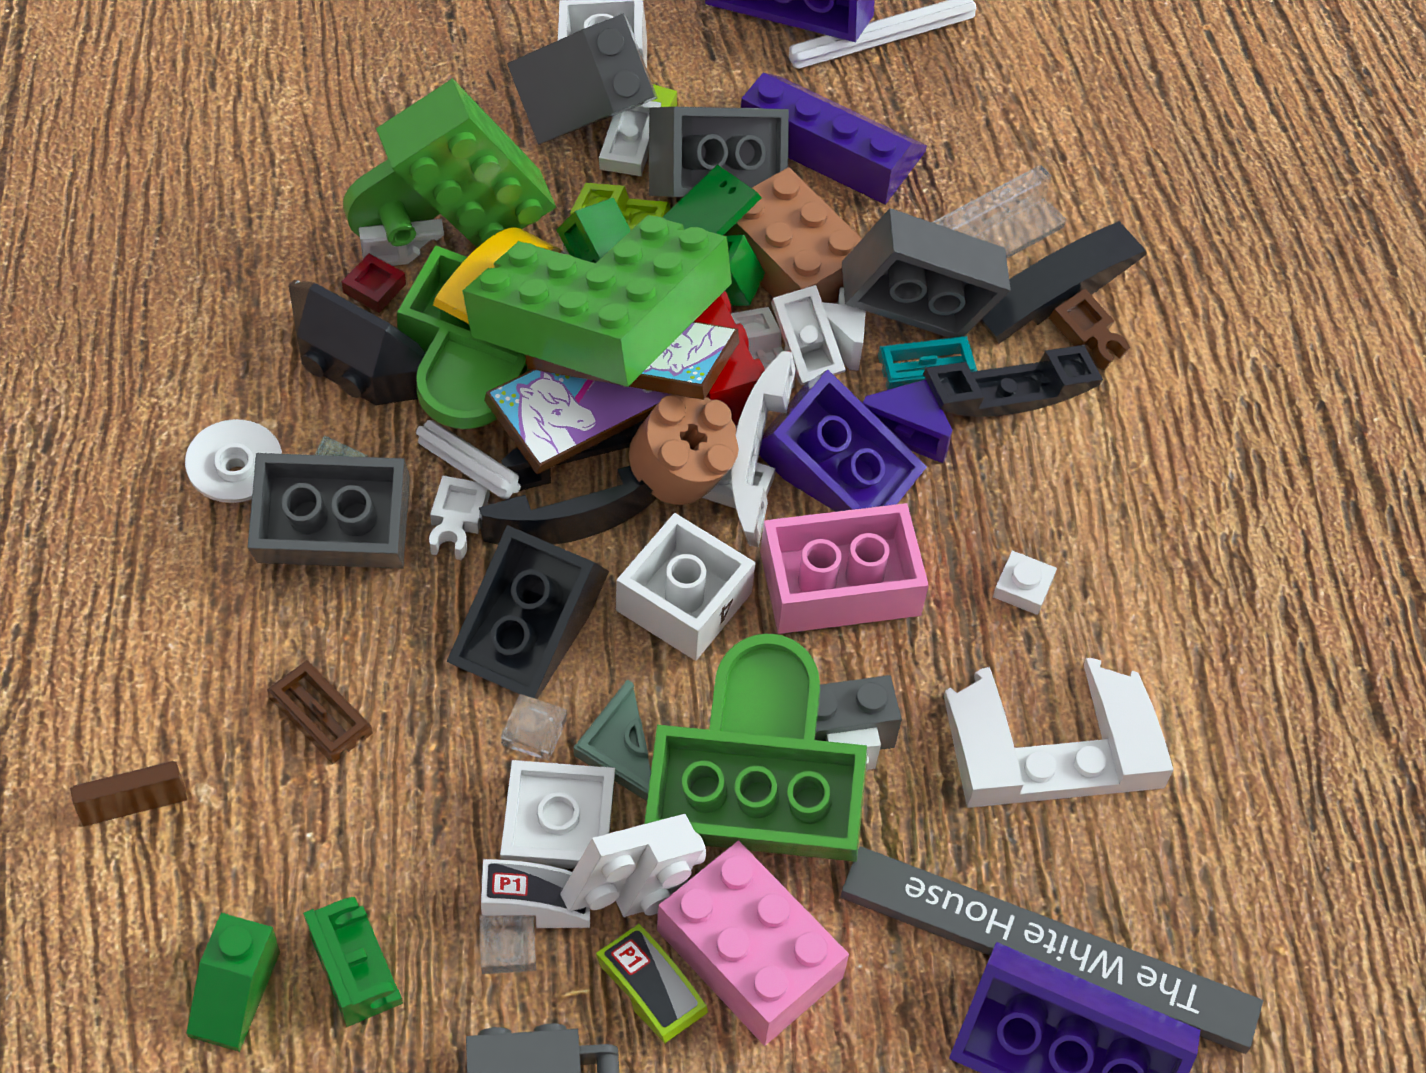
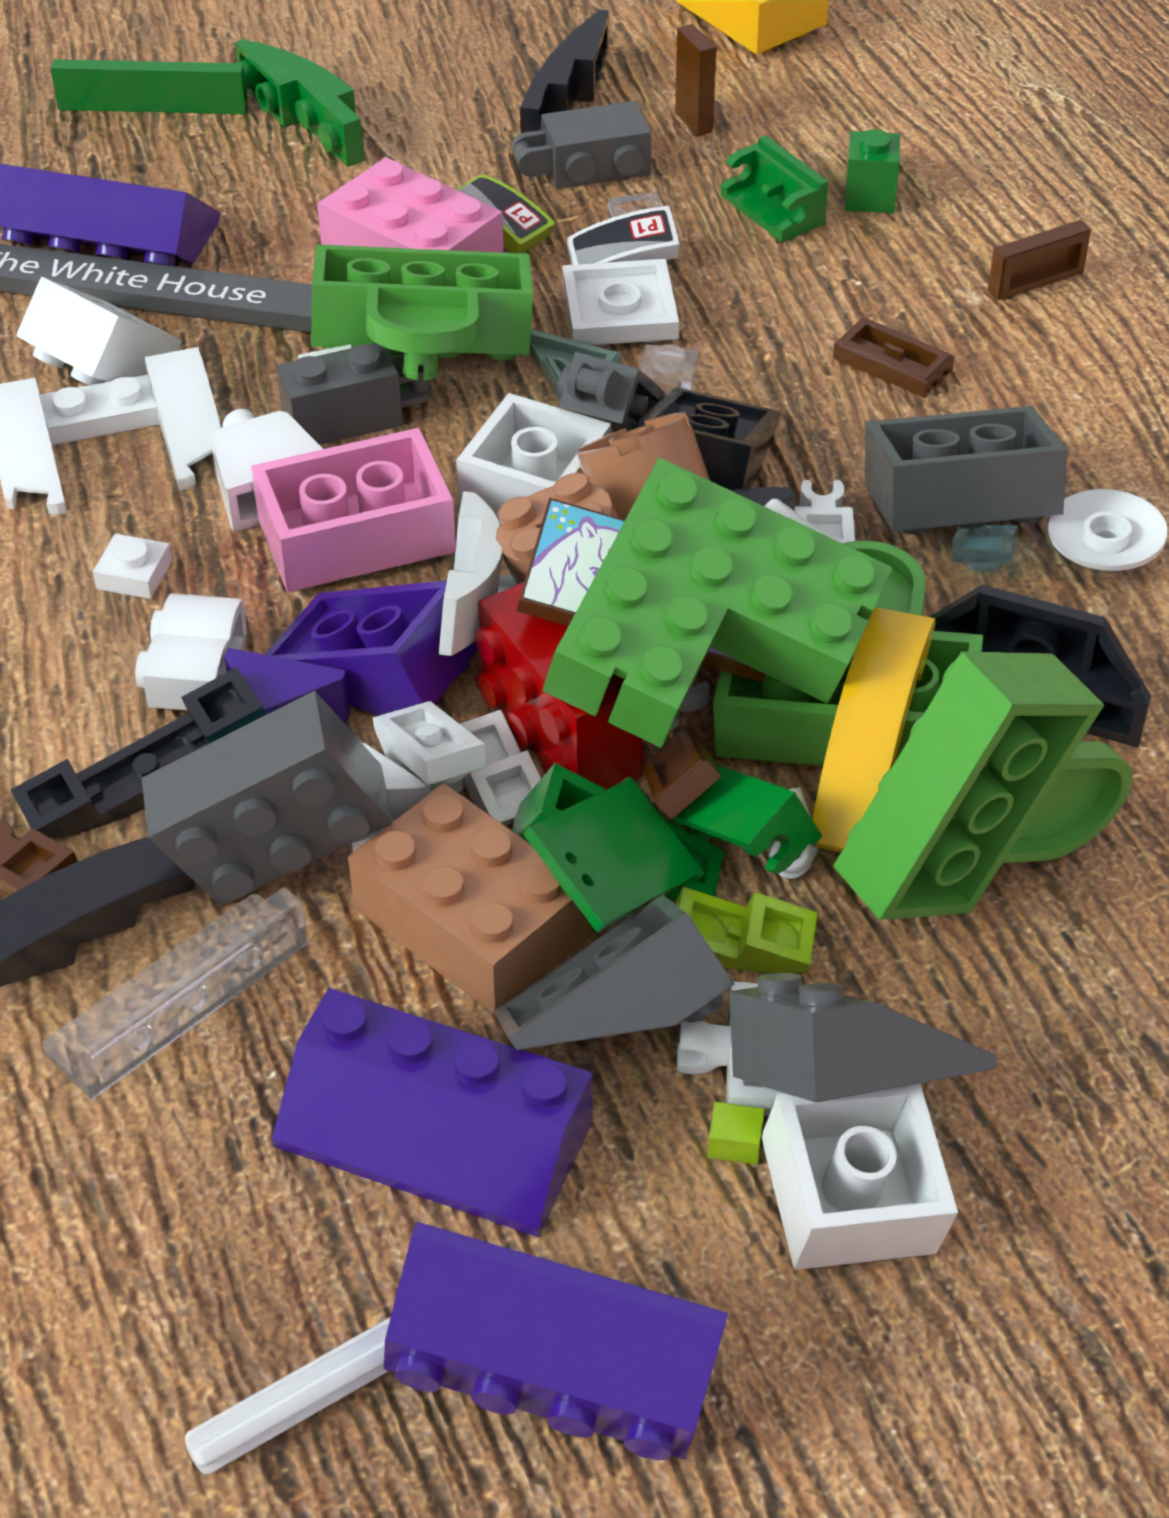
camera: 175 degrees right, 10 degrees down
(608, 626) = (607, 391): none -> dark grey brick
(630, 521) = (626, 458): none -> nougat brick
(635, 867) = (537, 219): white plate -> none
(916, 647) = (249, 442): none -> white torso
(974, 471) = (188, 646): none -> white brick
(1067, 849) = (90, 334): none -> white slope

